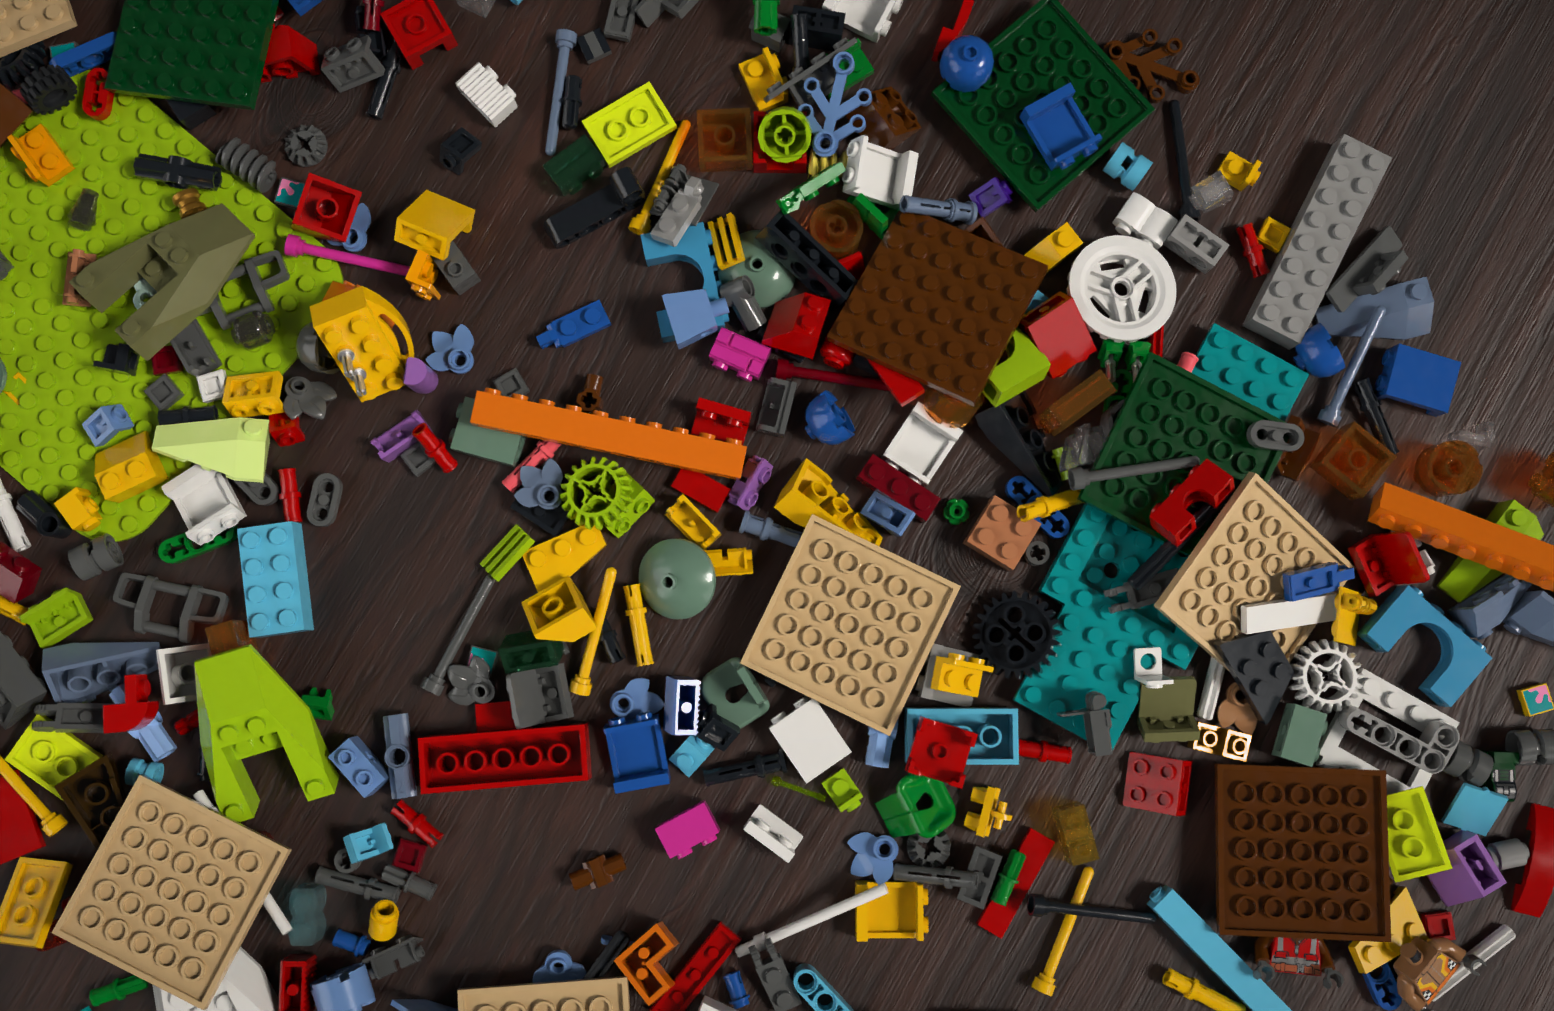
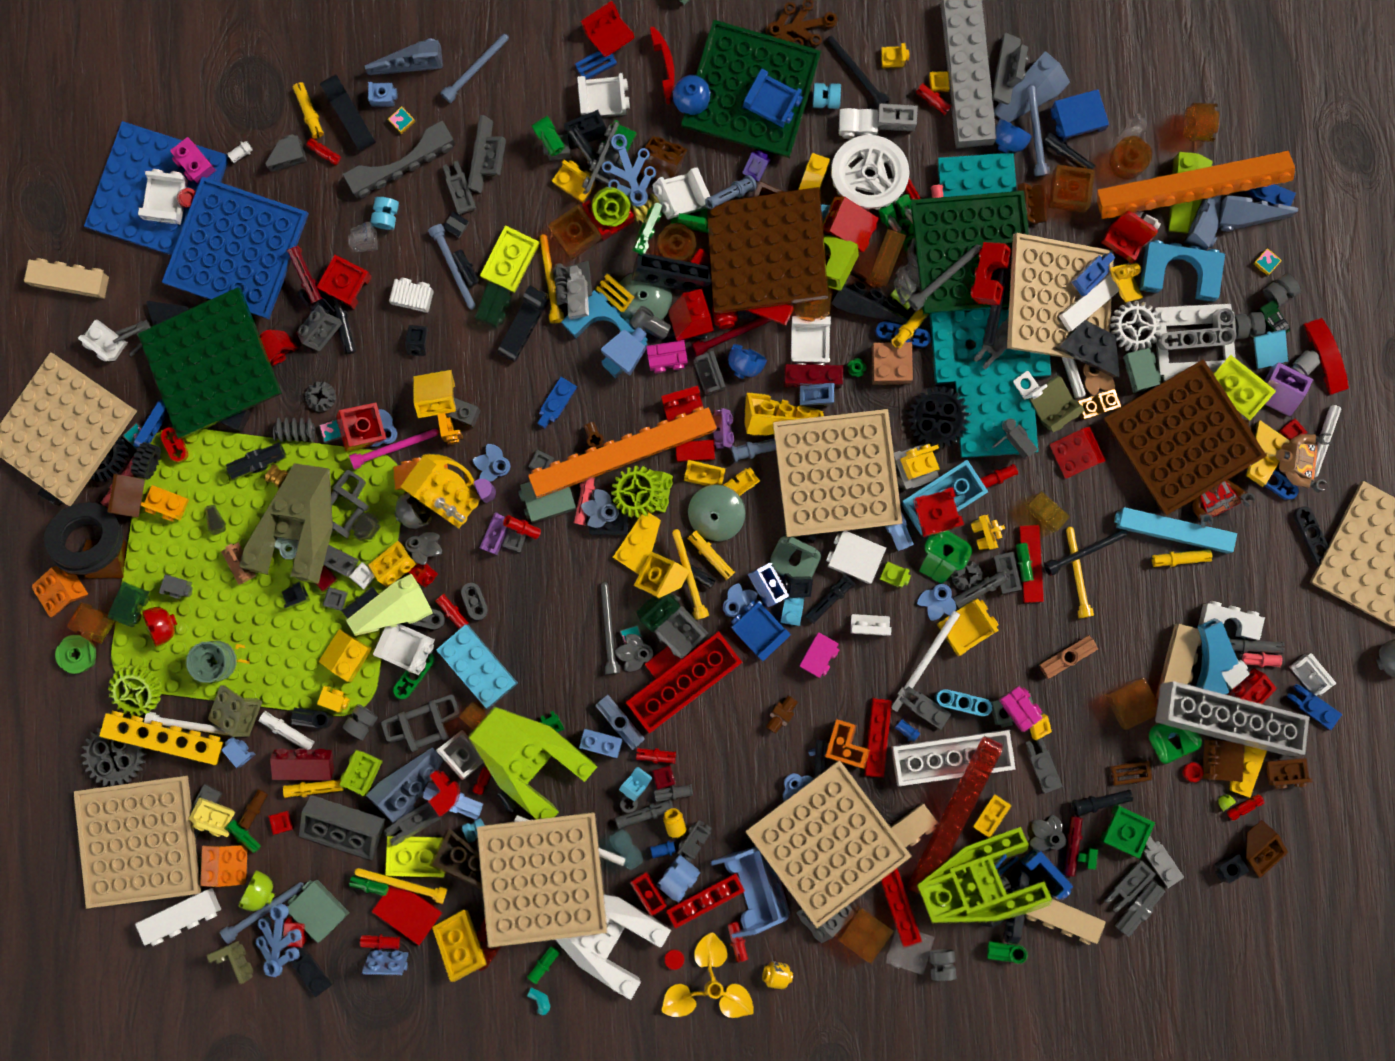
camera: 25 degrees left, 0 degrees up
(107, 423) = (314, 638): medium blue bracket -> none
(507, 550) = (603, 561): lime tile -> none
(777, 781) = (853, 595): clear neon green hinge -> none
(1033, 560) = (920, 368): dark grey bush -> none
(1211, 193) = (886, 81): clear slope -> none
(1273, 436) = (1014, 204): dark grey plate -> none

